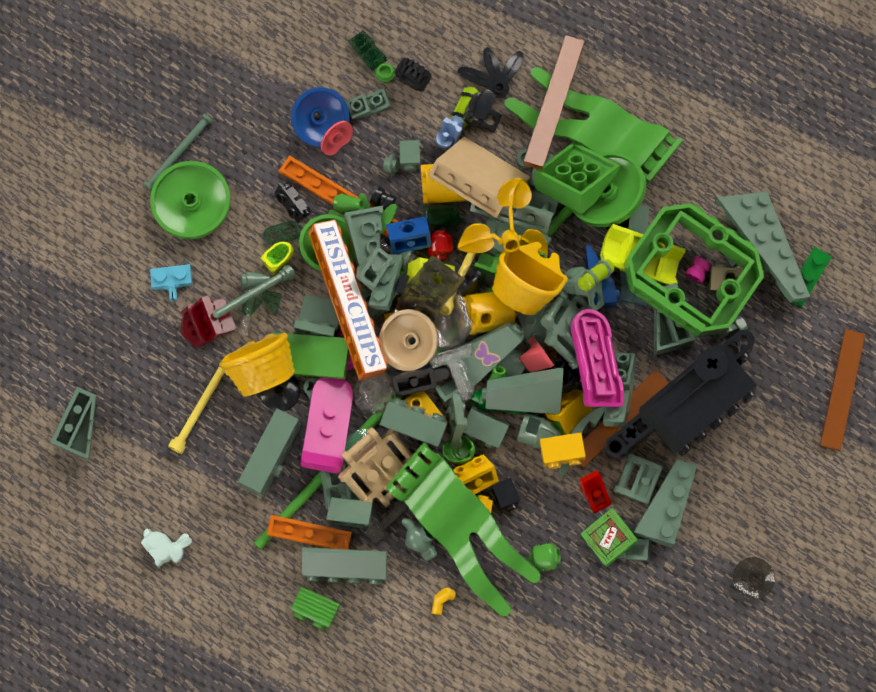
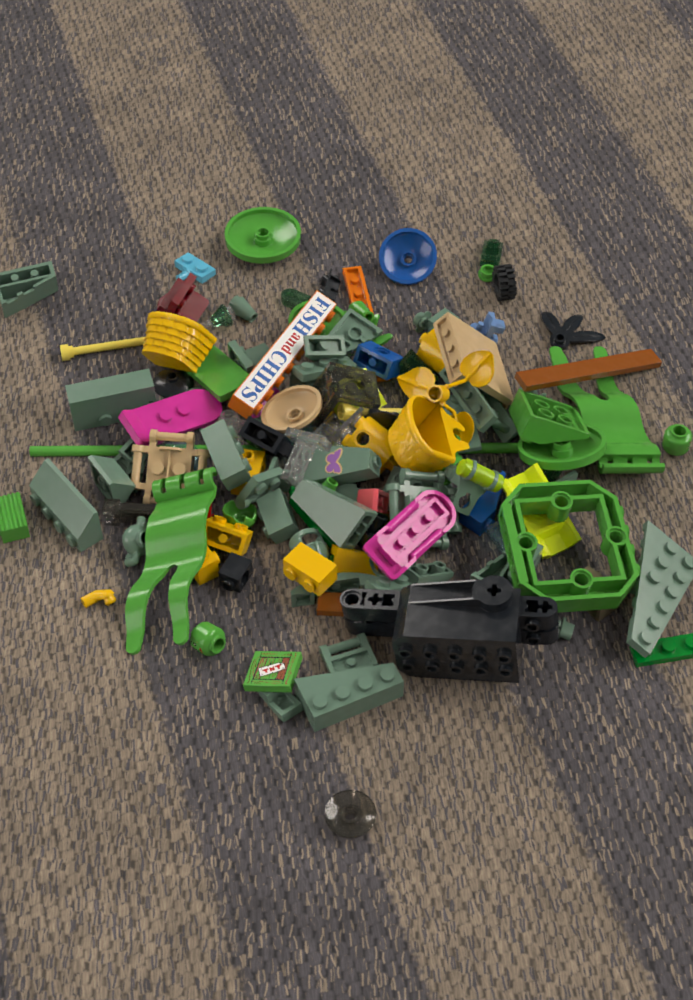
camera: 45 degrees right, 25 degrees down
(179, 150) = (312, 210): sand green bar -> none
(272, 300) = (240, 330): clear green tile -> none
(277, 256) = (275, 306): rock -> none
(284, 274) = (265, 320): sand green piece -> none
(308, 533) = (67, 463): orange tile -> none
(336, 137) = (403, 282): coral dish -> none
(368, 105) = (448, 280): sand green slope -> none
(381, 198) = (392, 328): black wheel -> none
(441, 245) = (391, 389): red head -> none
(475, 107) = (525, 332): black piece -> none
(594, 491) = (303, 630): red slope -> none
(663, 105) = (677, 440): none -> bright green head
(698, 270) = (570, 562): dark pink wheel -> none
(842, 390) = (601, 754): dark orange tile -> none

